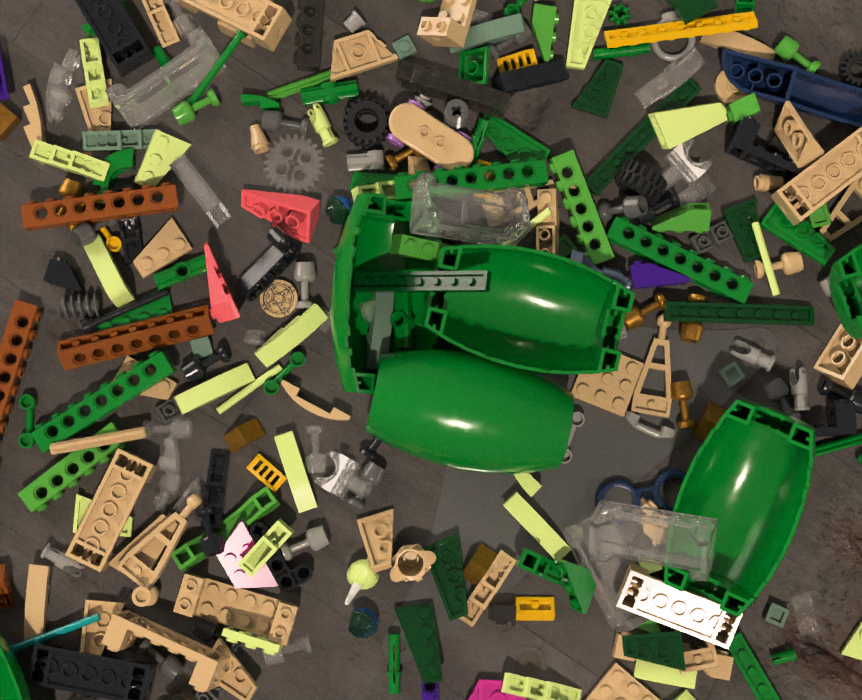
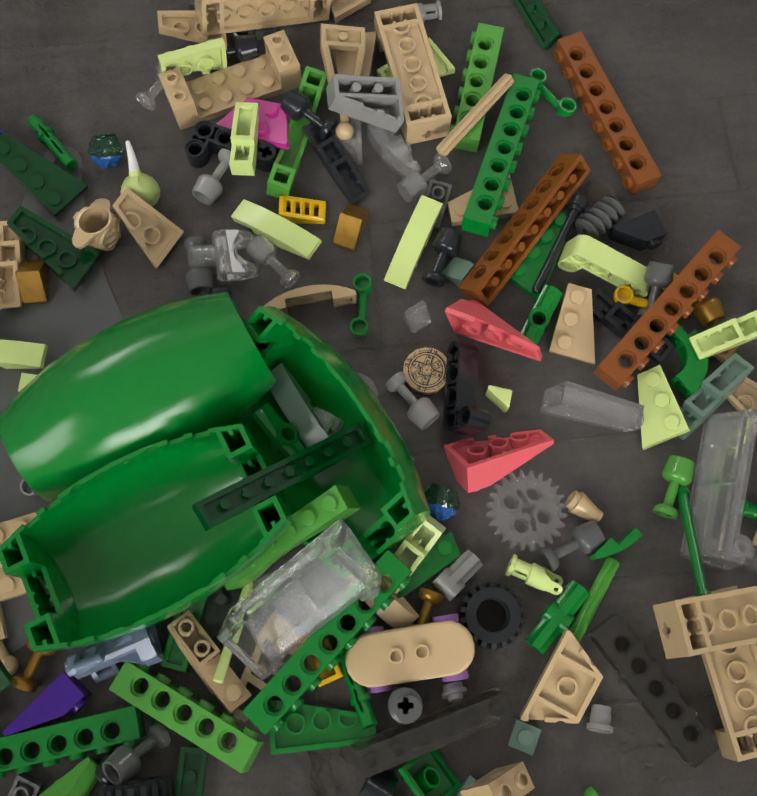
camera: 145 degrees right, 10 degrees down
(144, 597) = (318, 14): tan piece -> none
(162, 503) = (367, 99): none -> light grey wedge
(248, 243) = (499, 396): none -> yellowish green slope
(248, 389) = (382, 270): yellowish green bar -> none
(289, 337) = (383, 342): yellowish green slope -> none

